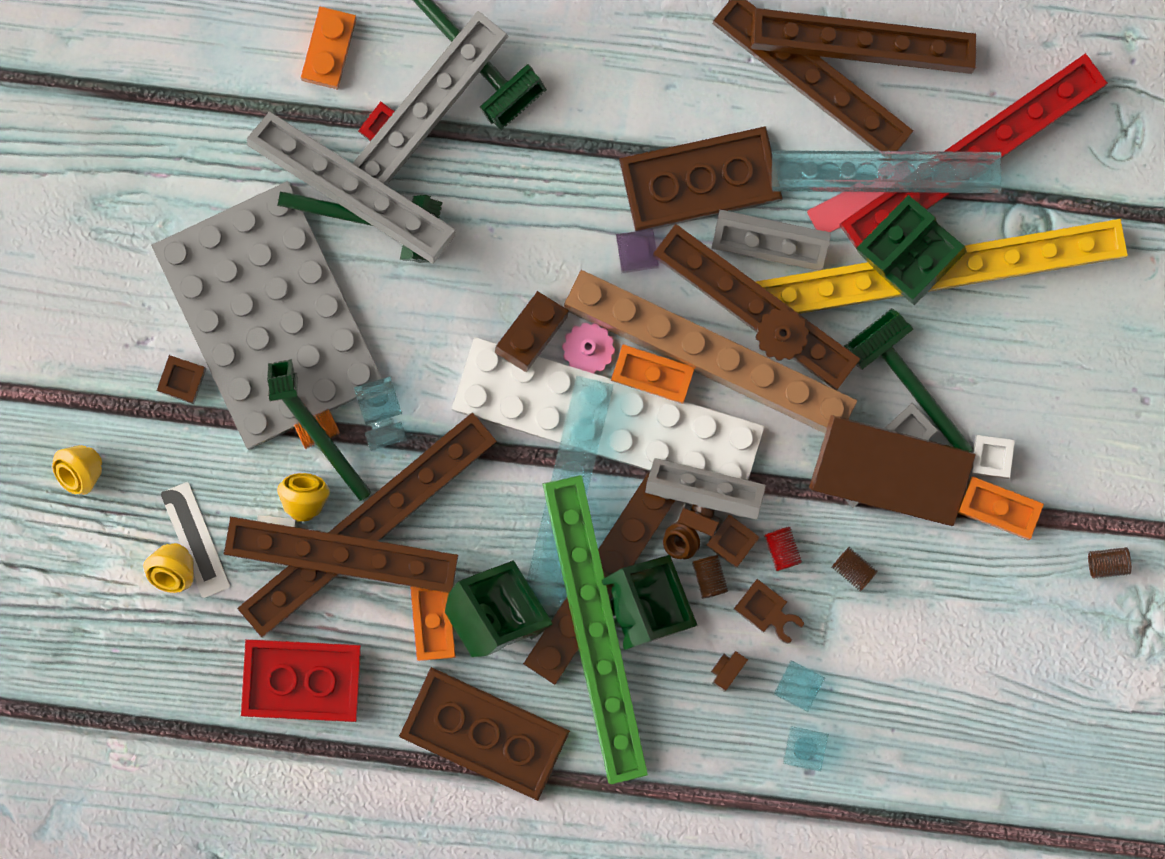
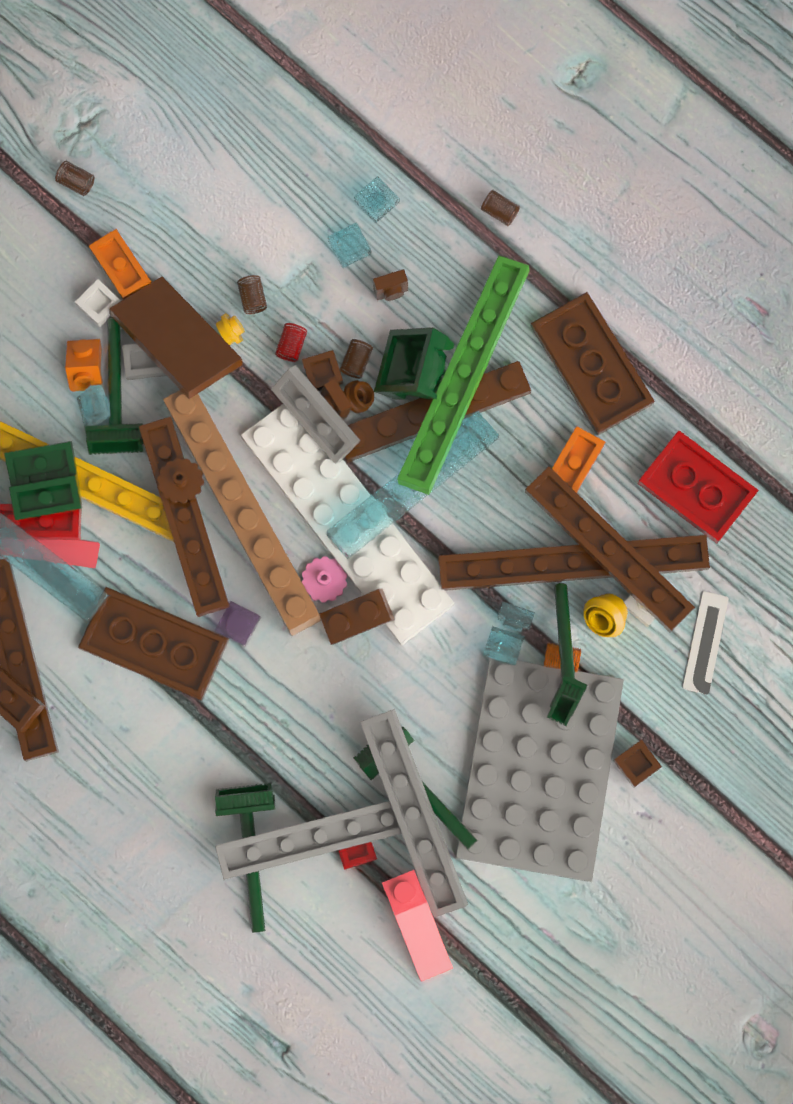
camera: 140 degrees left, 5 degrees down
(77, 468) = (759, 750): yellow cone -> none
(170, 568) = (738, 630): yellow cone -> none
(282, 97) = (417, 925): none -> slope
(328, 48) = (354, 939): orange plate -> none
(495, 610) = (526, 431): dark green brick -> none
(652, 374) = (292, 526): orange plate -> none
(676, 819) = (496, 213): none -> reddish brown piece
(763, 608) = (334, 310): reddish brown plate -> none
(771, 240) = (137, 561): light grey plate -> none
(849, 519) = (230, 329): none -> yellow plate
(920, 354) = (93, 405): none -> clear light blue plate
(961, 389) = (83, 364): none -> orange bracket

